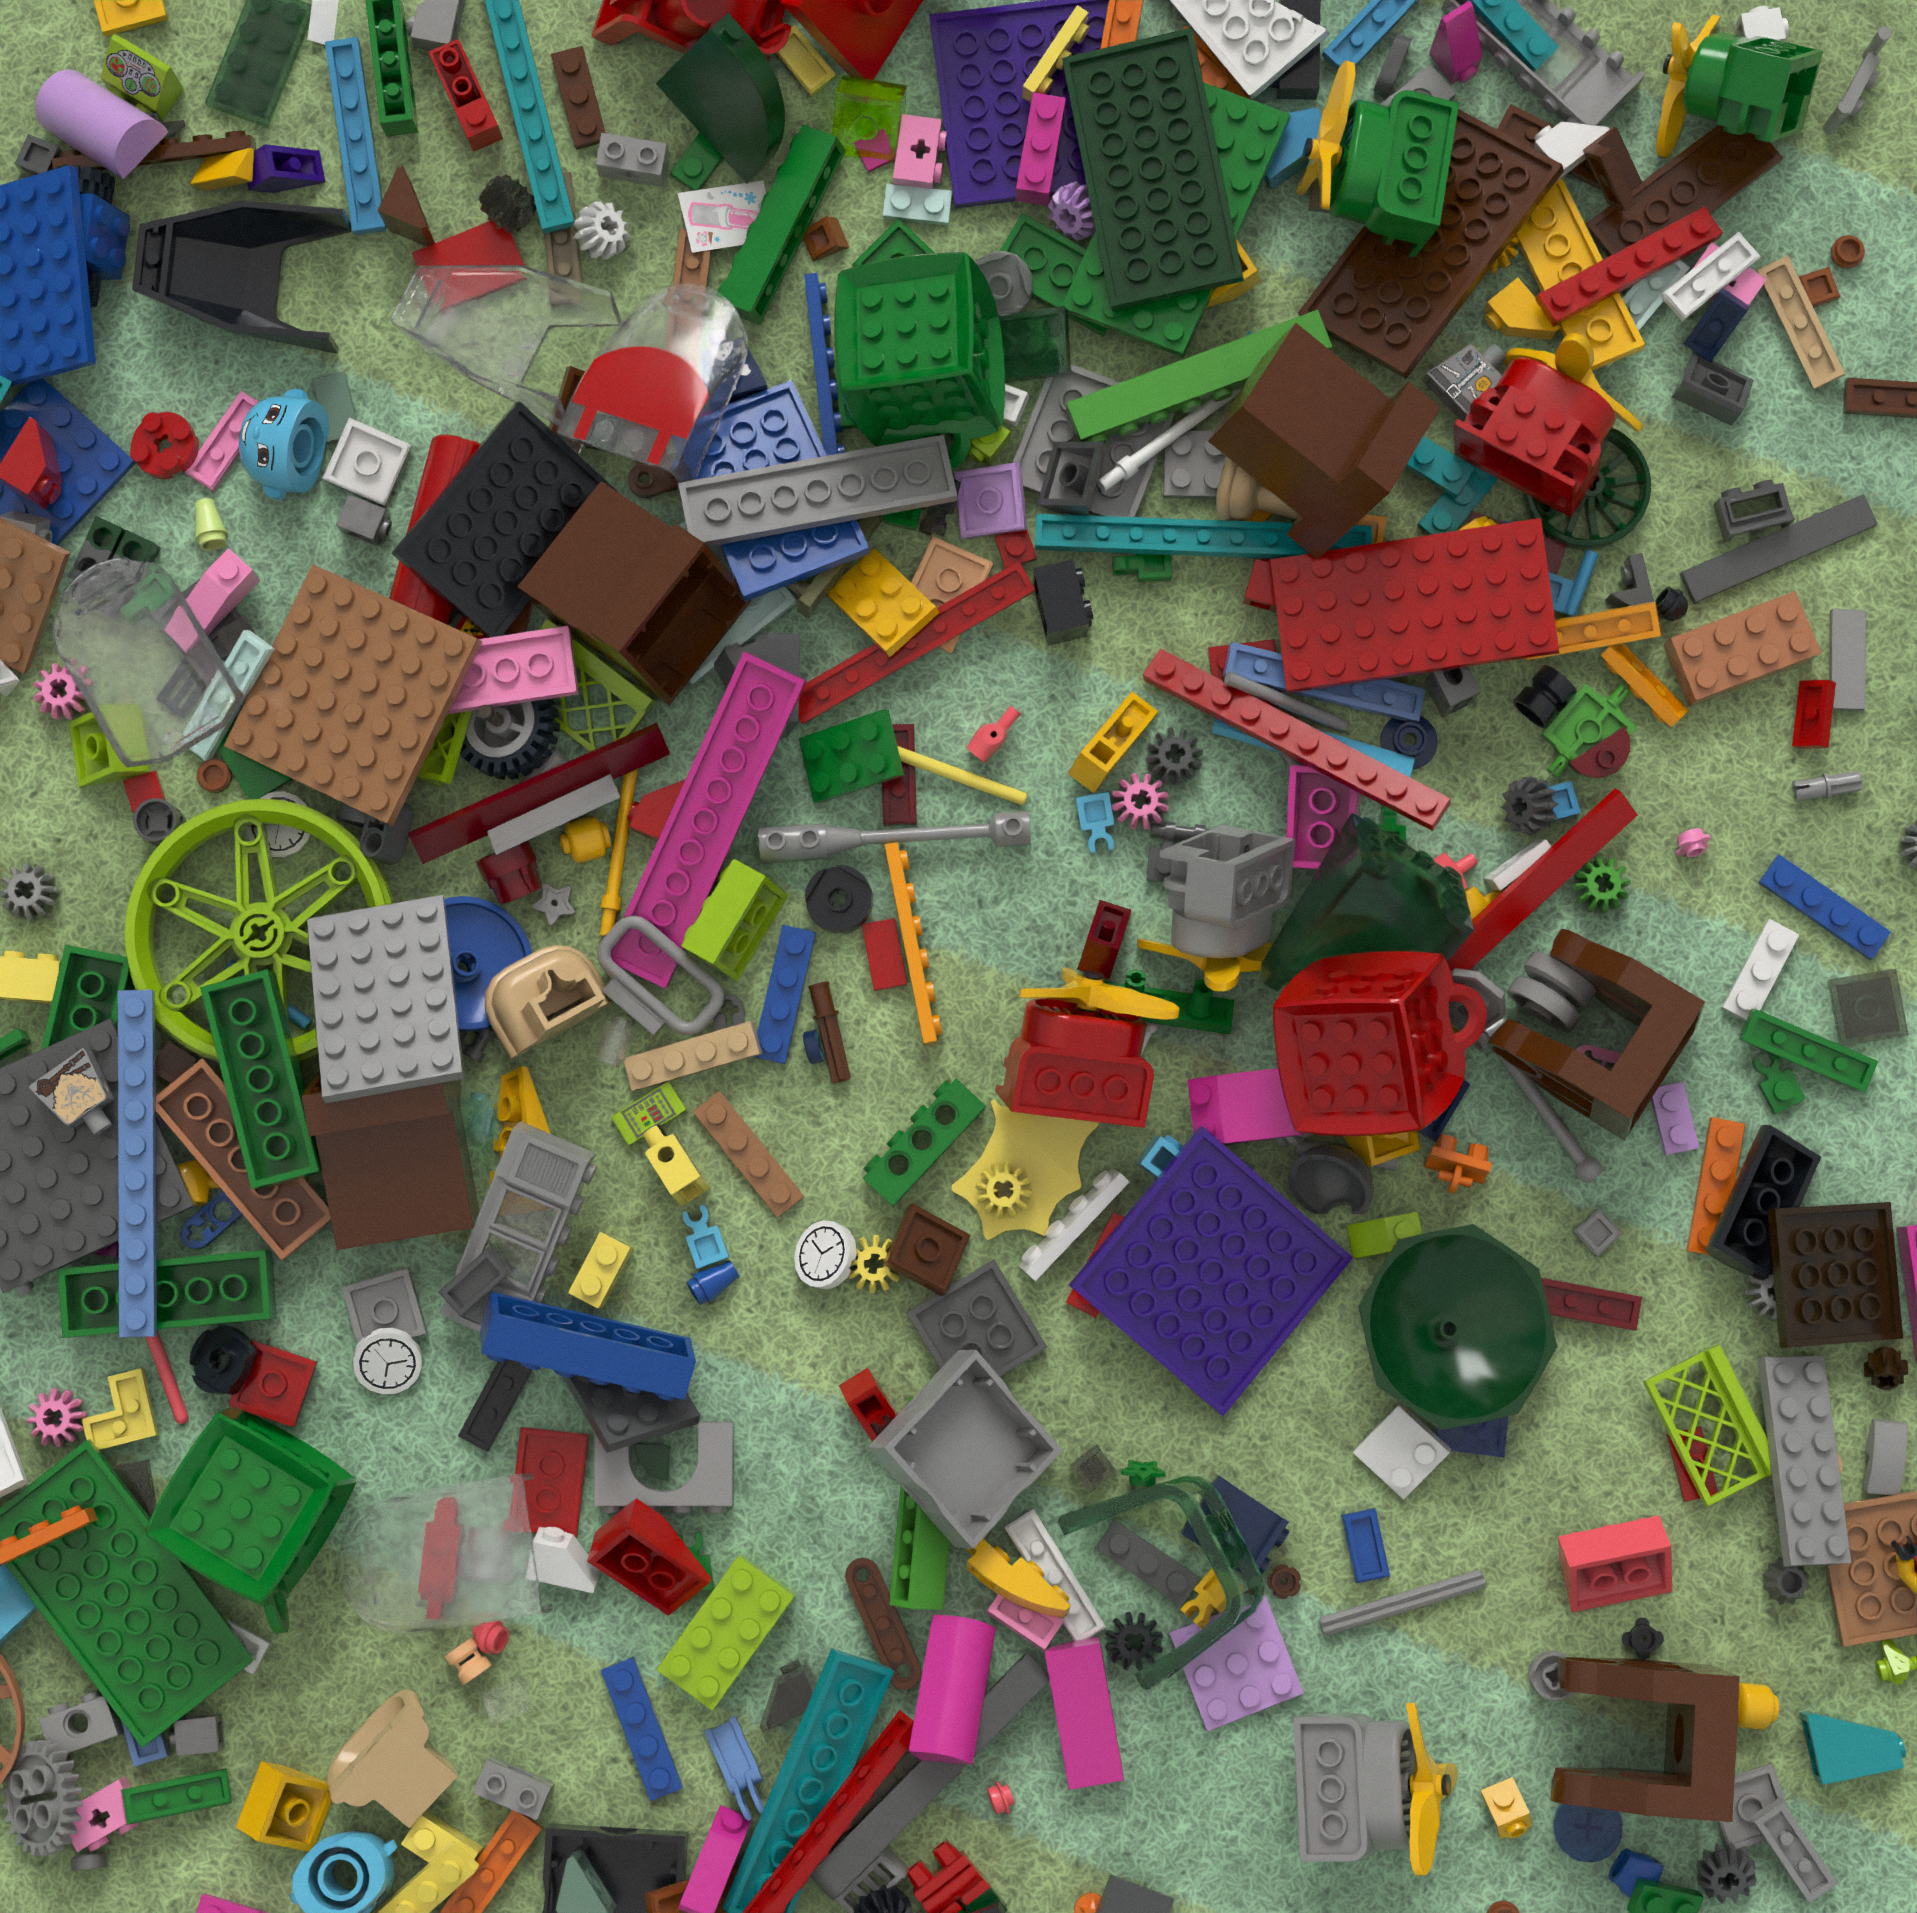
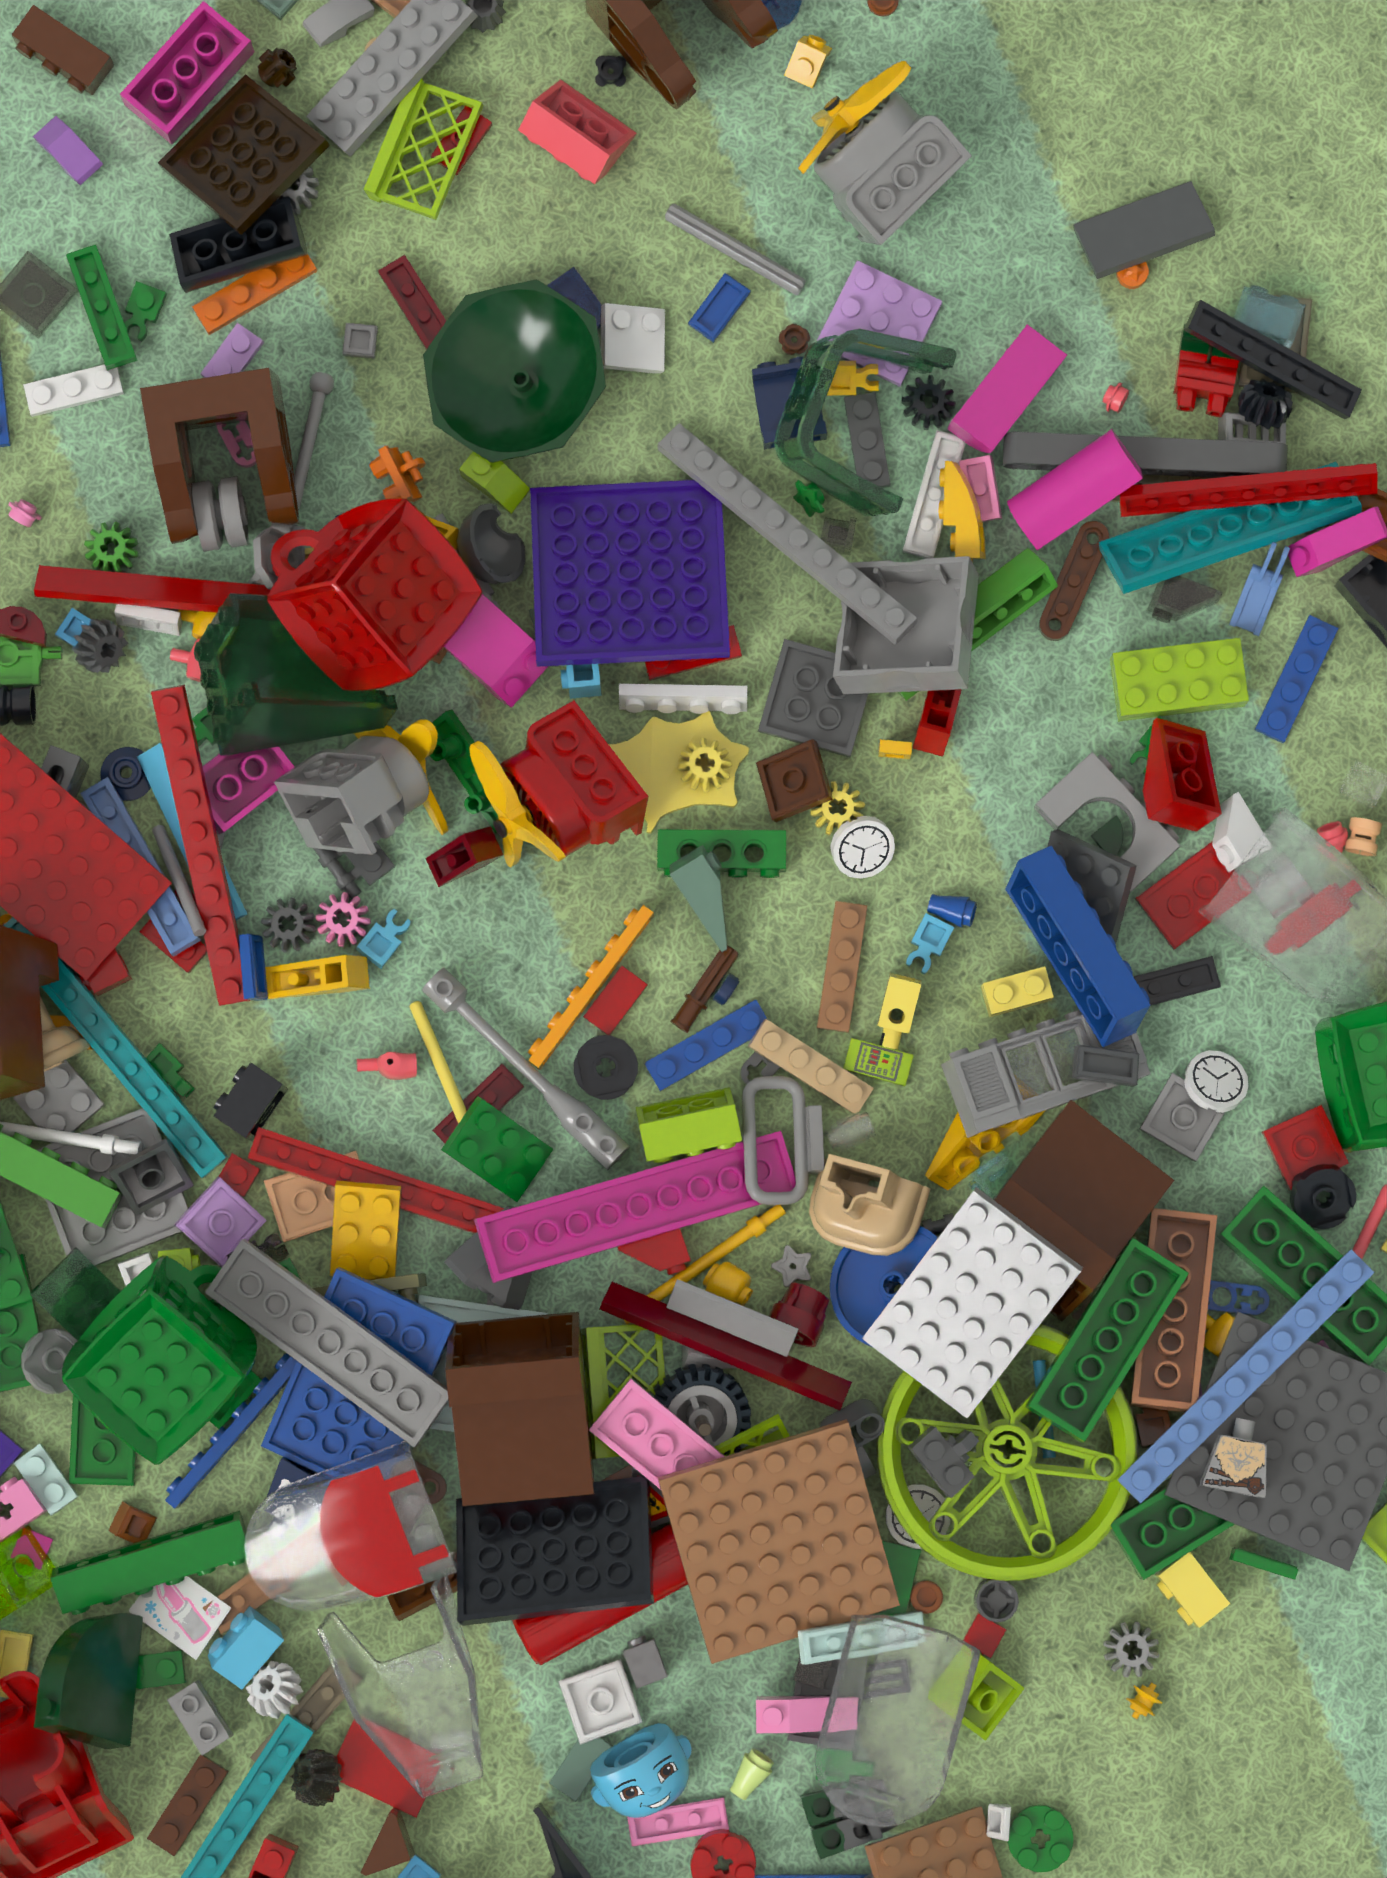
camera: 130 degrees left, 0 degrees up
(51, 698) = (976, 1771): bright pink gear -> none
(294, 876) = (945, 1458): none -> dark grey hinge
(652, 236) = (245, 1647): none -> medium azure brick
(879, 1353) = (895, 749): none -> yellow tile
(912, 1098) = (700, 883): none -> sand green slope
(1127, 1424) = (787, 534): none -> light grey plate
(1166, 699) = (253, 967): none -> blue tile
(1544, 1676) = (695, 112): light grey wheel -> none

